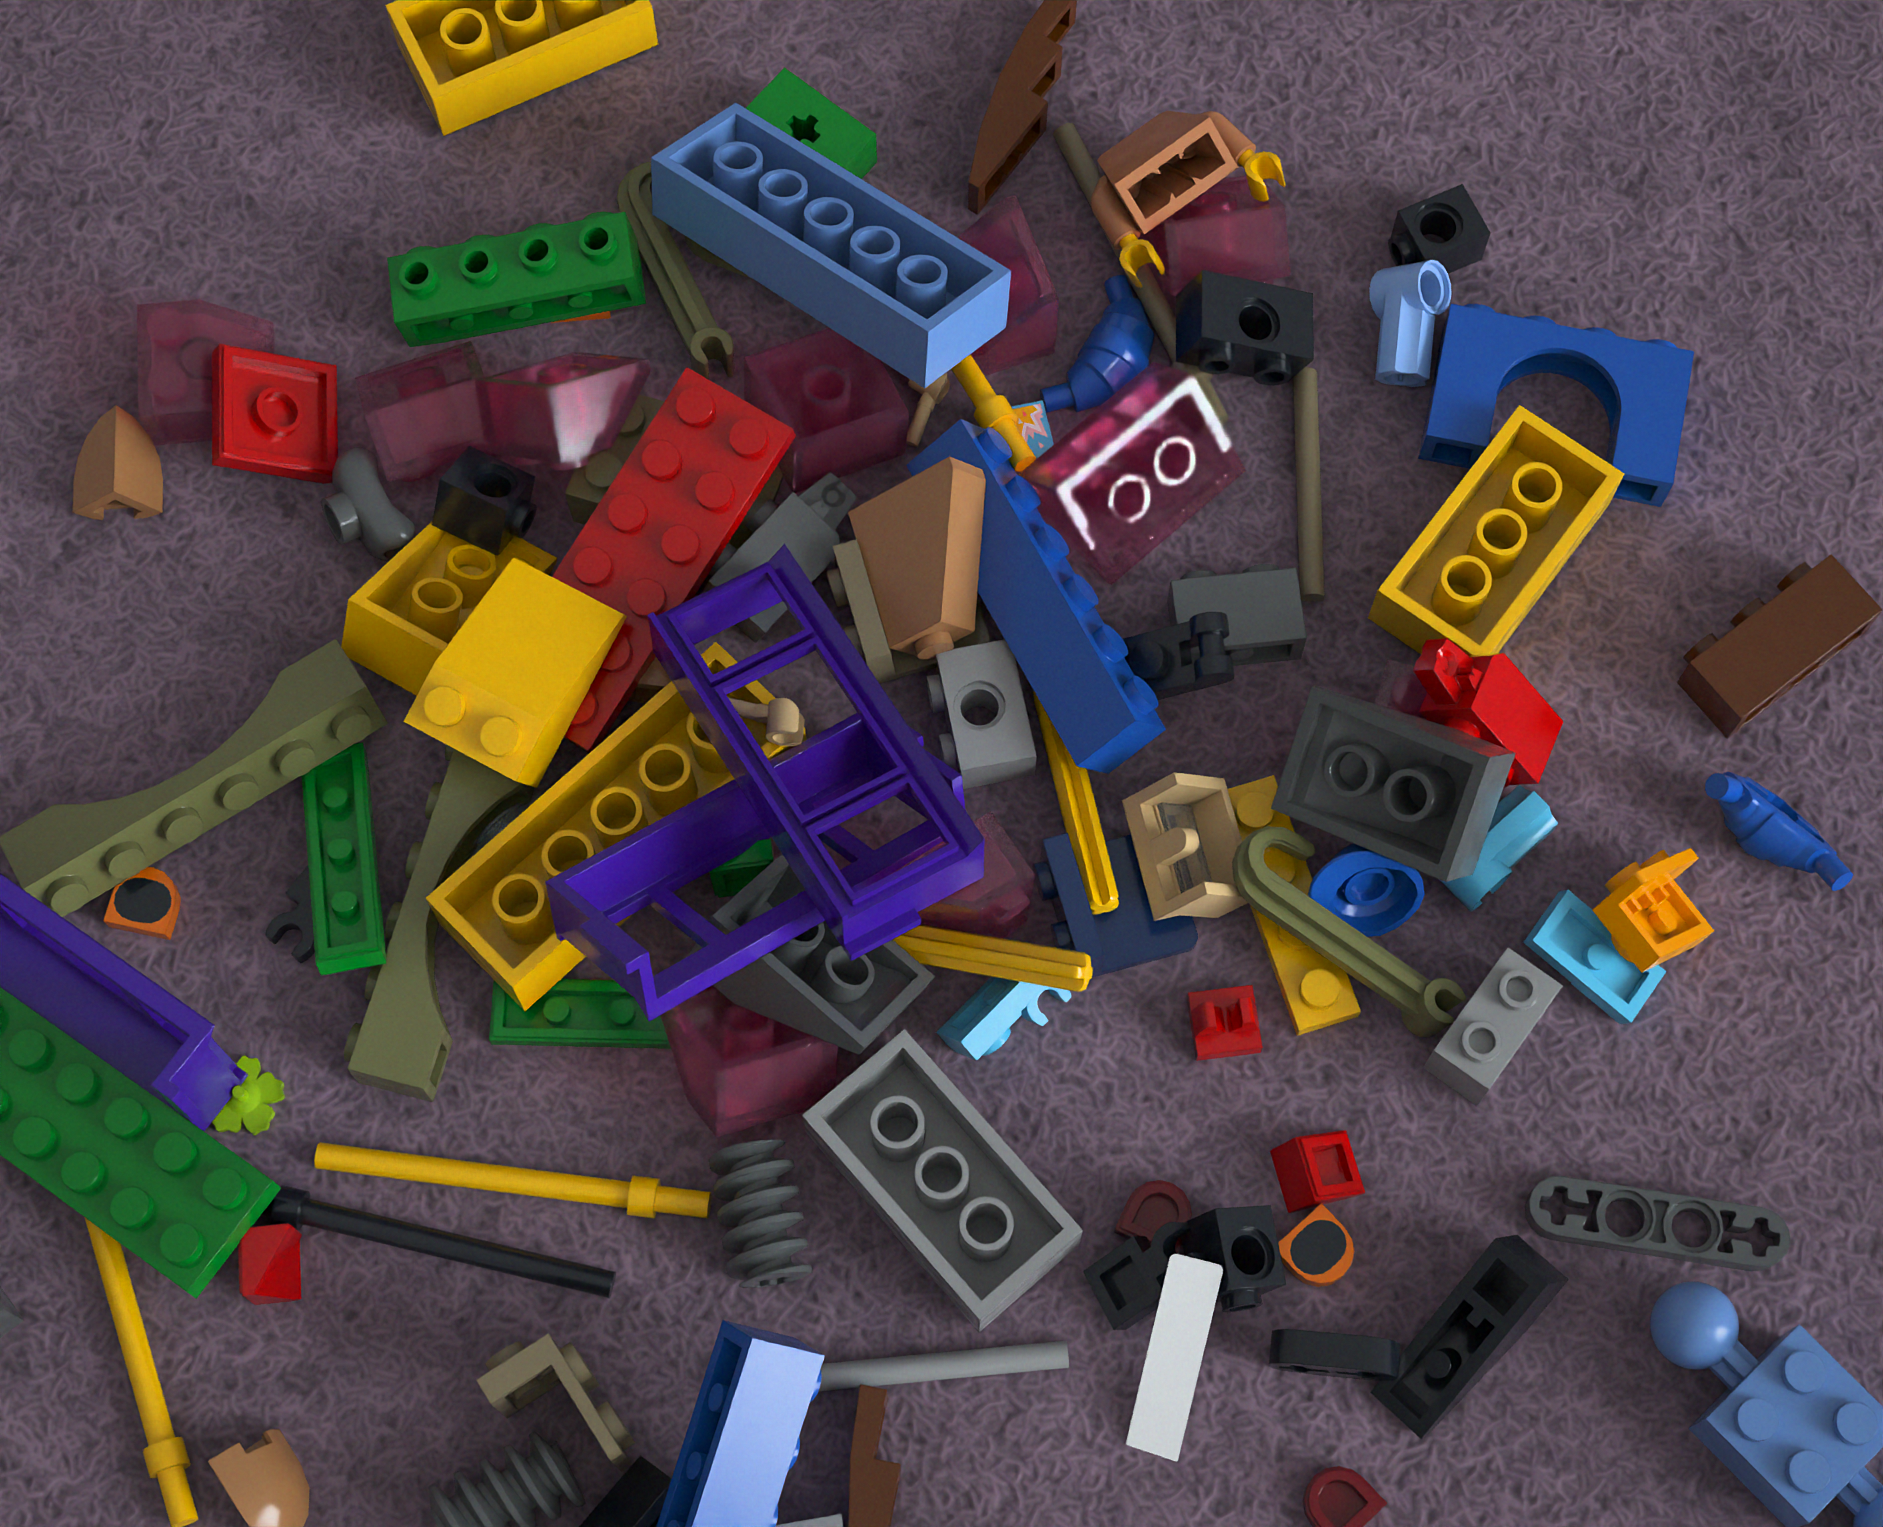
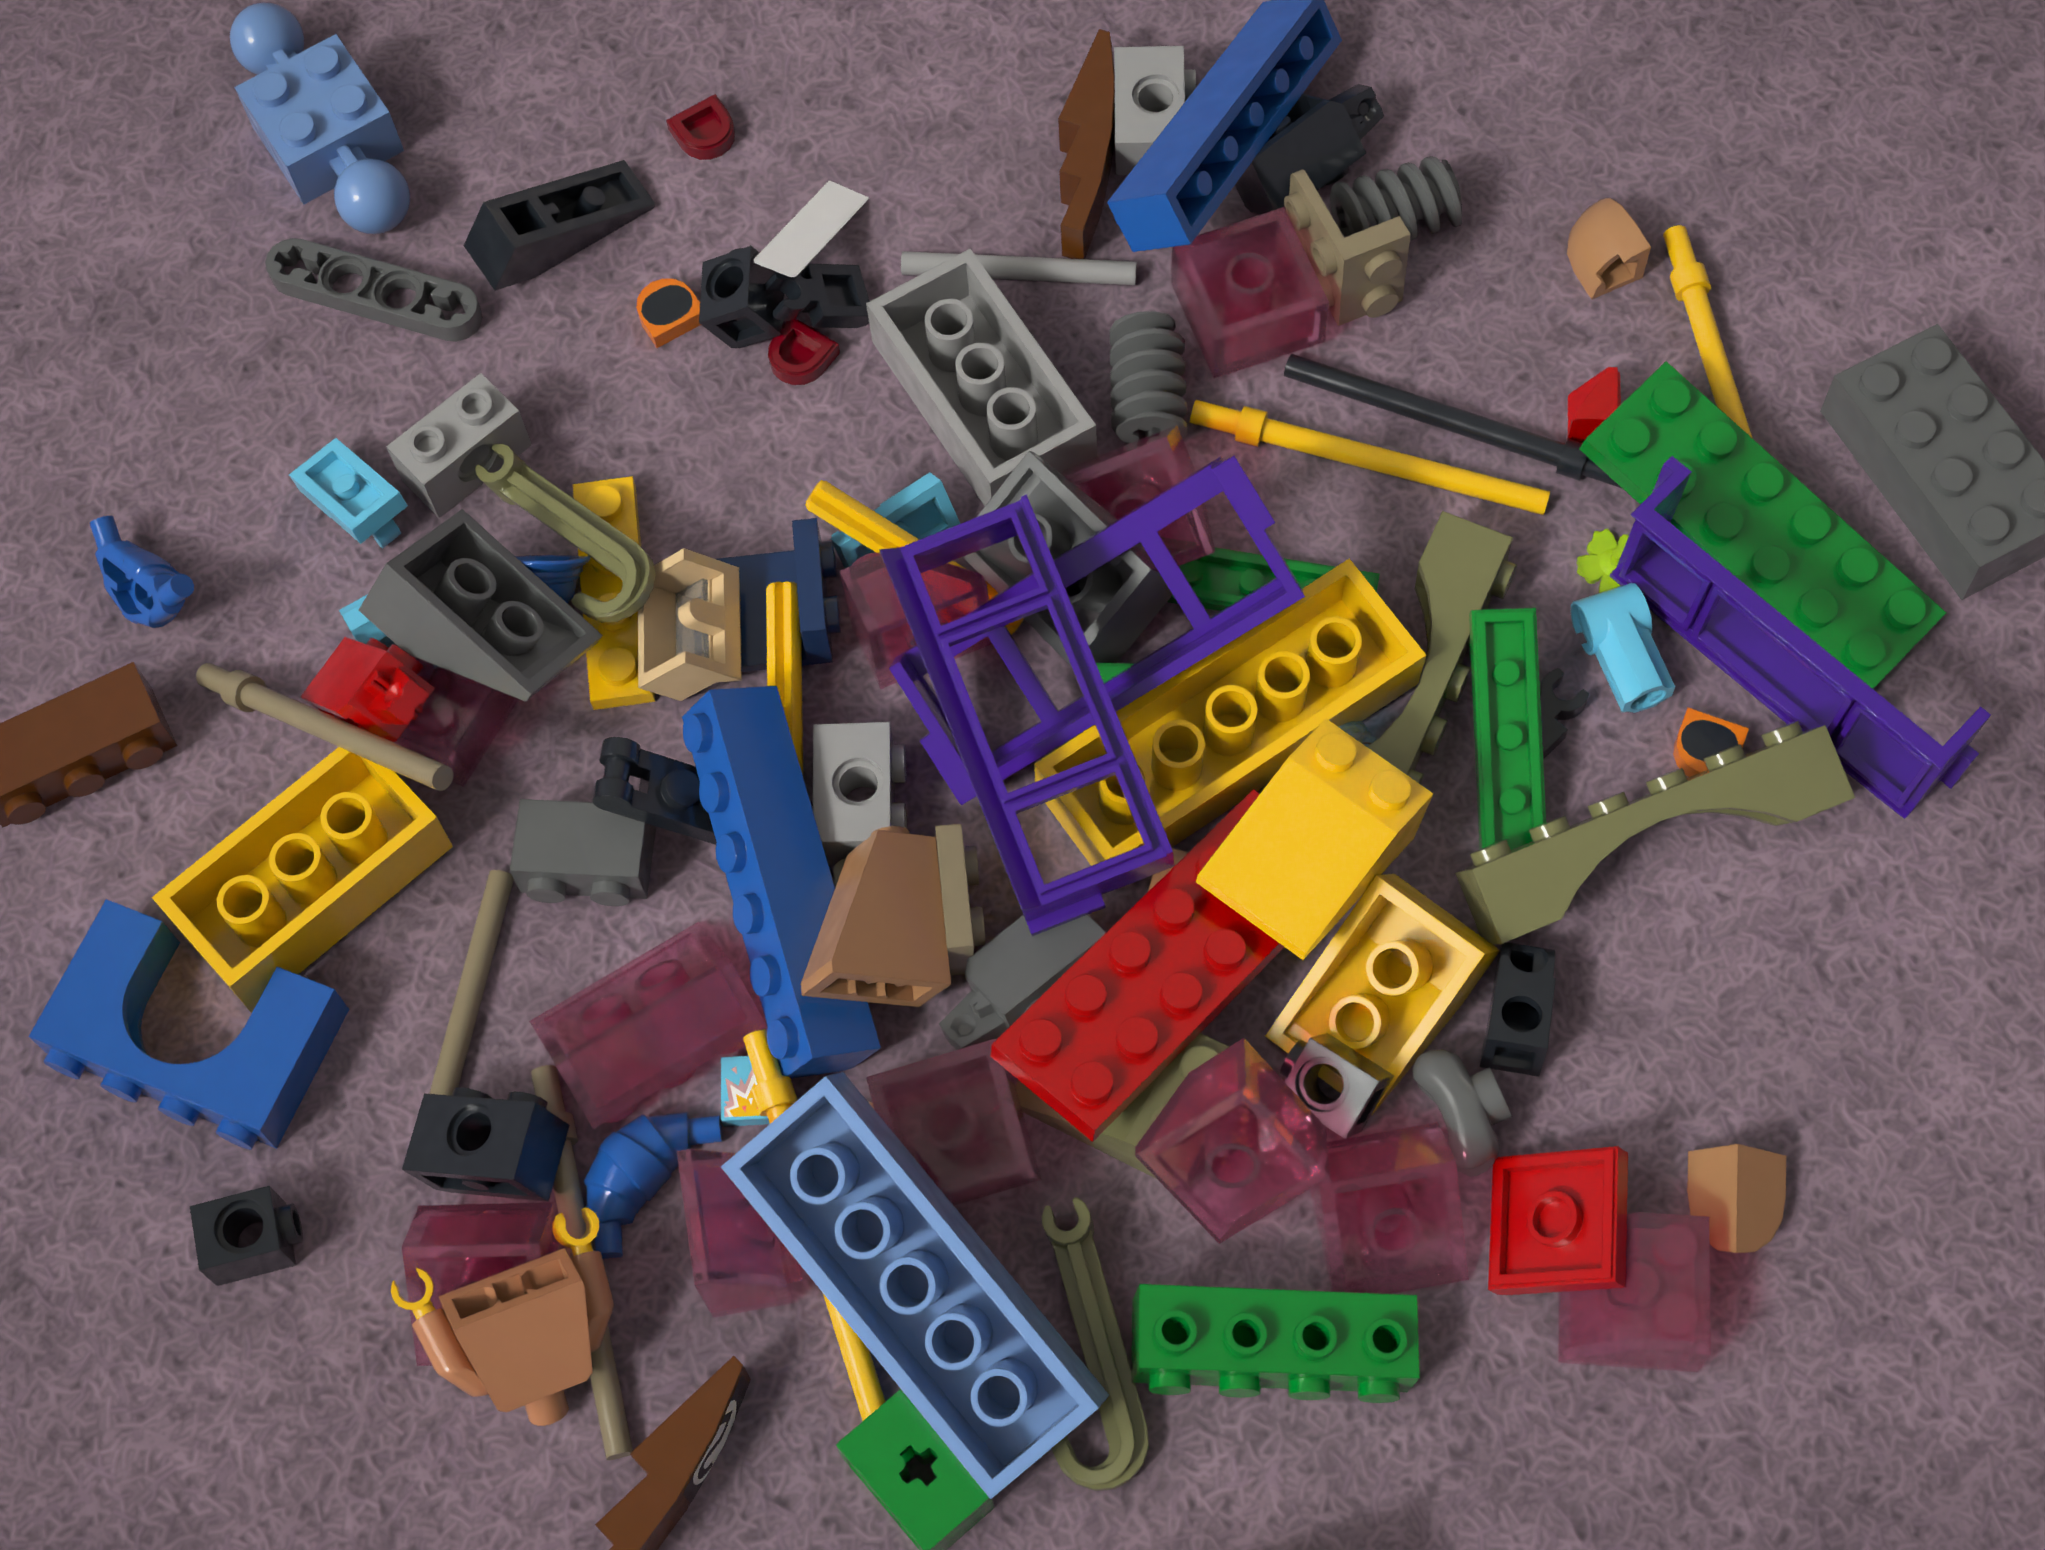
camera: 165 degrees left, 5 degrees down
(232, 993) = (1619, 634): none -> medium azure piece
(316, 598) = (1520, 1010): none -> black leg
(652, 1337) = (1249, 292): none -> clear pink brick
(782, 717) = (1053, 757): tan hand -> none
(1224, 1022) = (698, 498): red tile -> none
(1316, 1170) = (650, 370): red slope -> none
(1334, 1354) = (677, 218): black beam -> none
(1407, 304) = (303, 1153): light blue piece -> none
(1618, 721) = (251, 694): none -> dark tan bar
(1650, 912) = (280, 508): light orange bracket -> none

